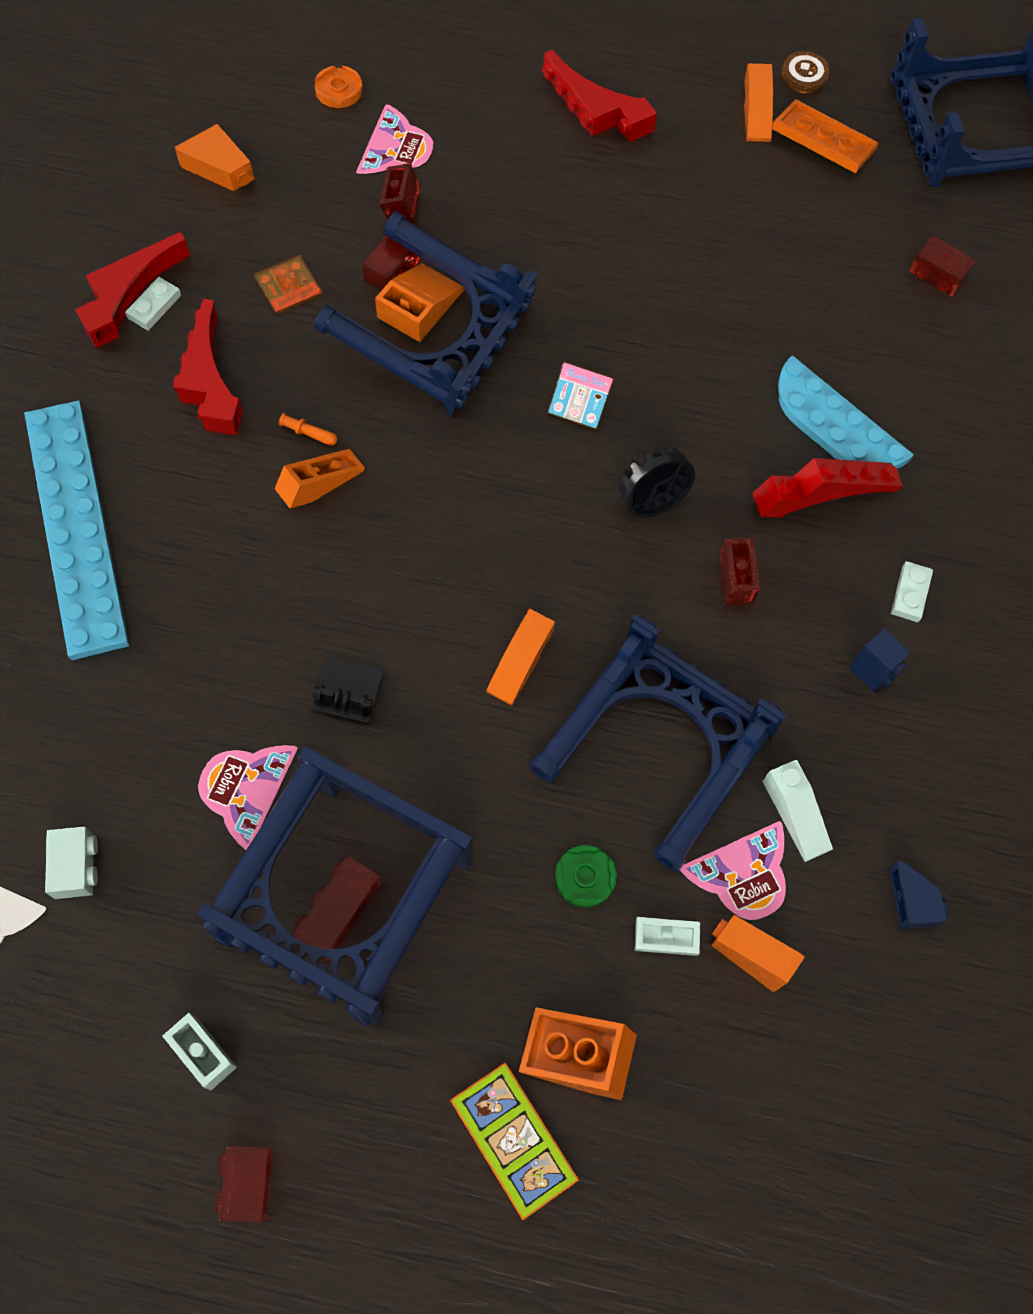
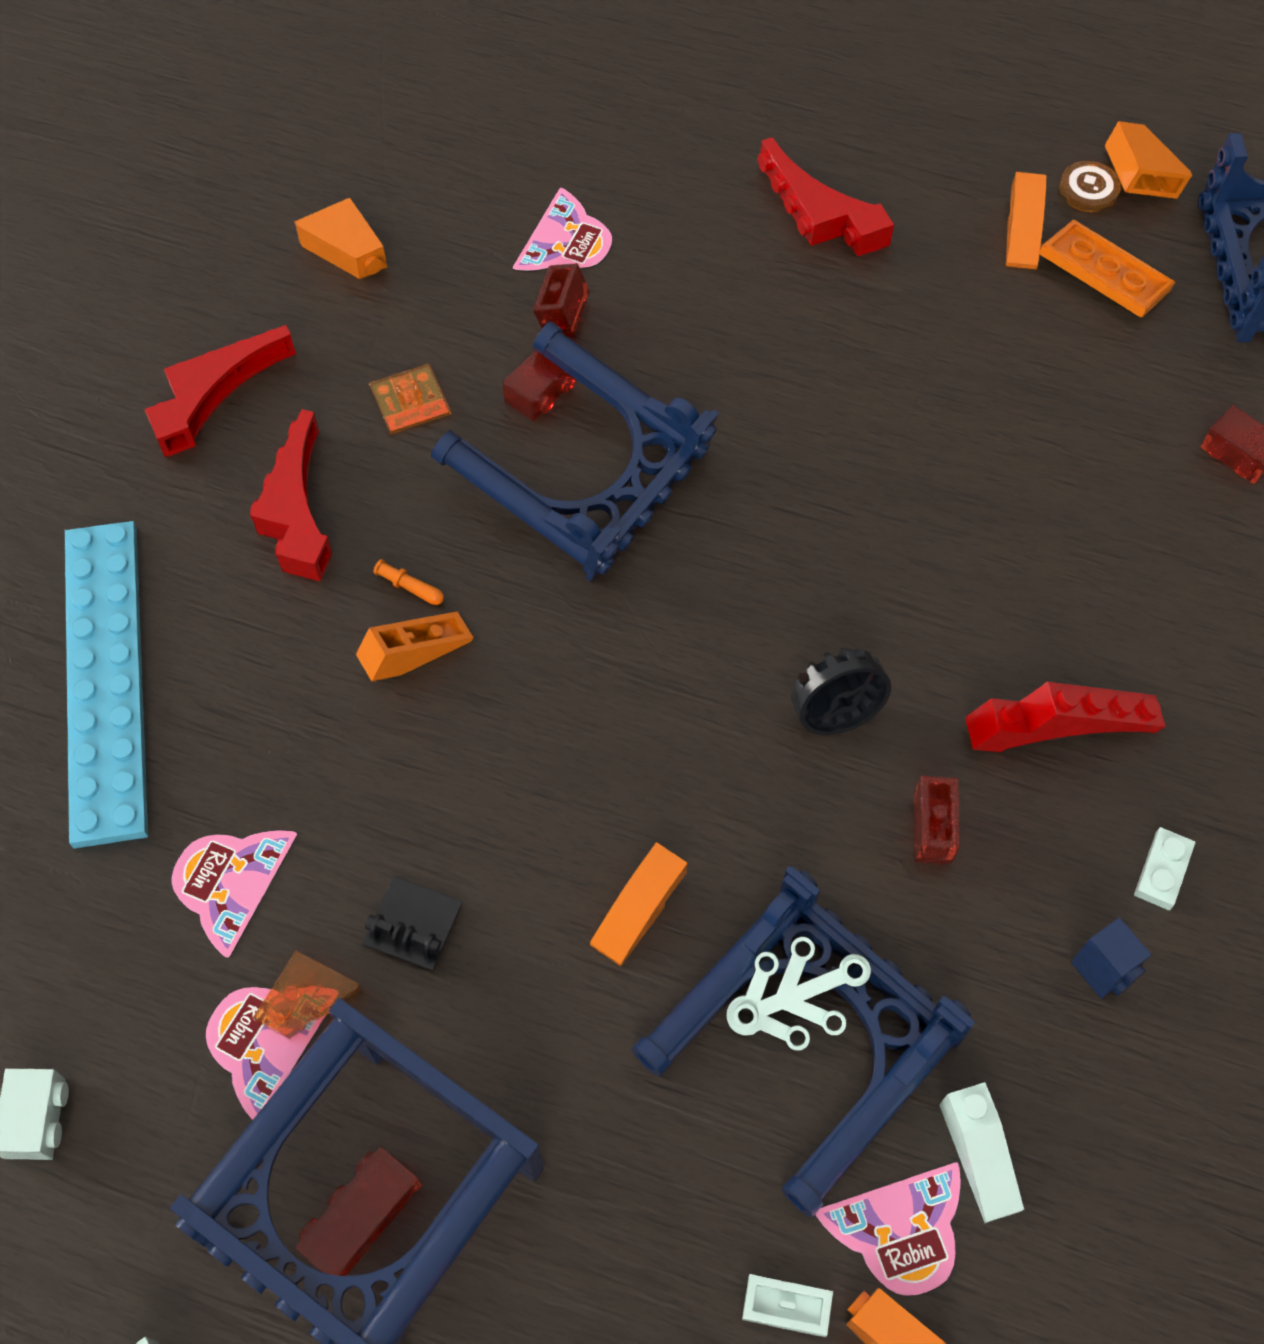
camera: 10 degrees right, 5 degrees down
(153, 303) = (242, 409): light aqua plate -> none
(198, 672) = (227, 879): none -> sticker
(270, 751) = (302, 995): none -> clear orange wing
(338, 86) = (504, 162): orange tile -> none
(416, 300) = (565, 432): orange slope -> none
(580, 395) = (757, 570): piece -> none
(585, 876) = (689, 1209): green tile -> none
(645, 713) = (791, 996): none -> light aqua plant
(834, 420) = (1083, 632): medium azure plate -> none
(847, 49) = (1145, 162): none -> orange slope
(916, 899) = (1131, 1294): dark blue slope -> none

